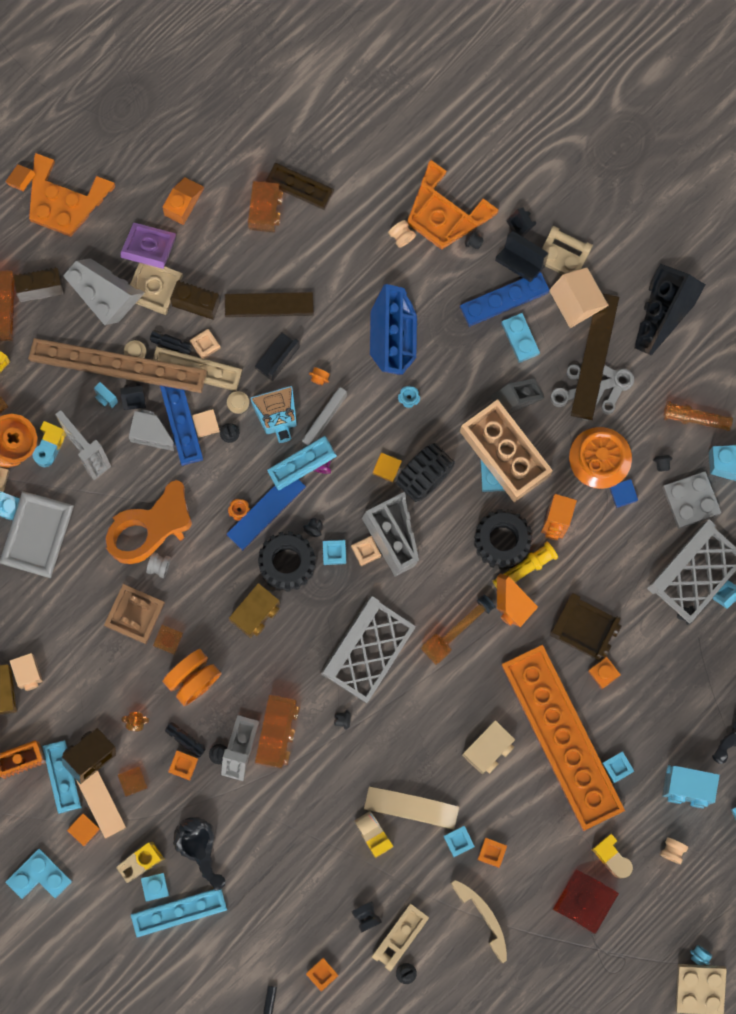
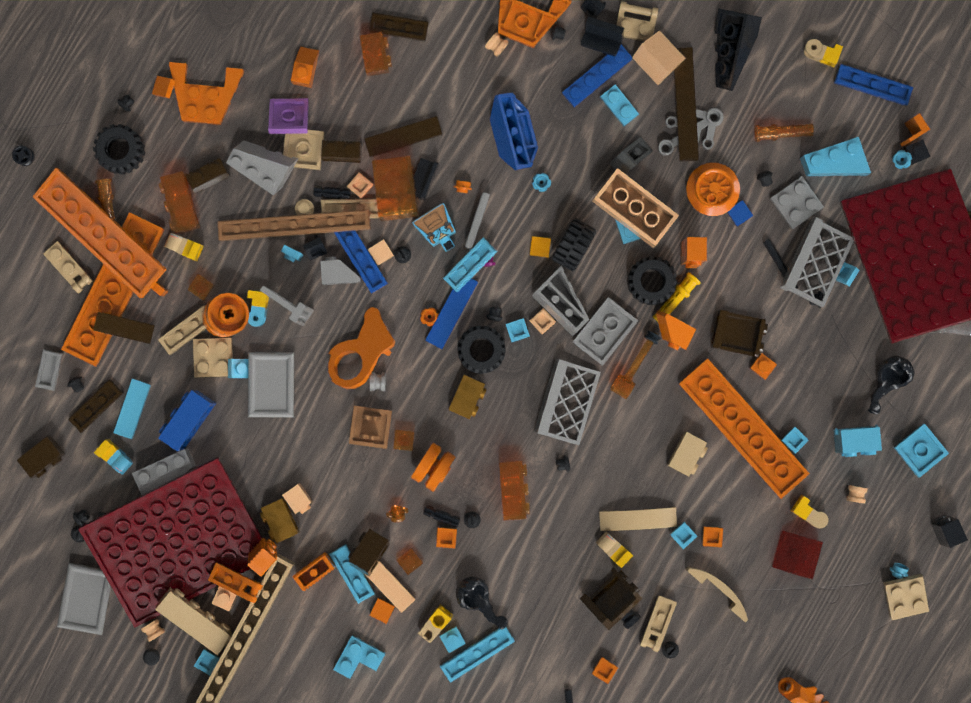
camera: 10 degrees left, 10 degrees up
(238, 402) = (402, 227): tan plate -> none
(239, 748) = (487, 510): light grey bracket -> none
(242, 355) = (395, 188): none -> clear orange brick
(355, 891) = (613, 599): none -> dark brown panel
(433, 581) = (605, 331): none -> light grey plate
(652, 556) = (776, 258): none -> black bar

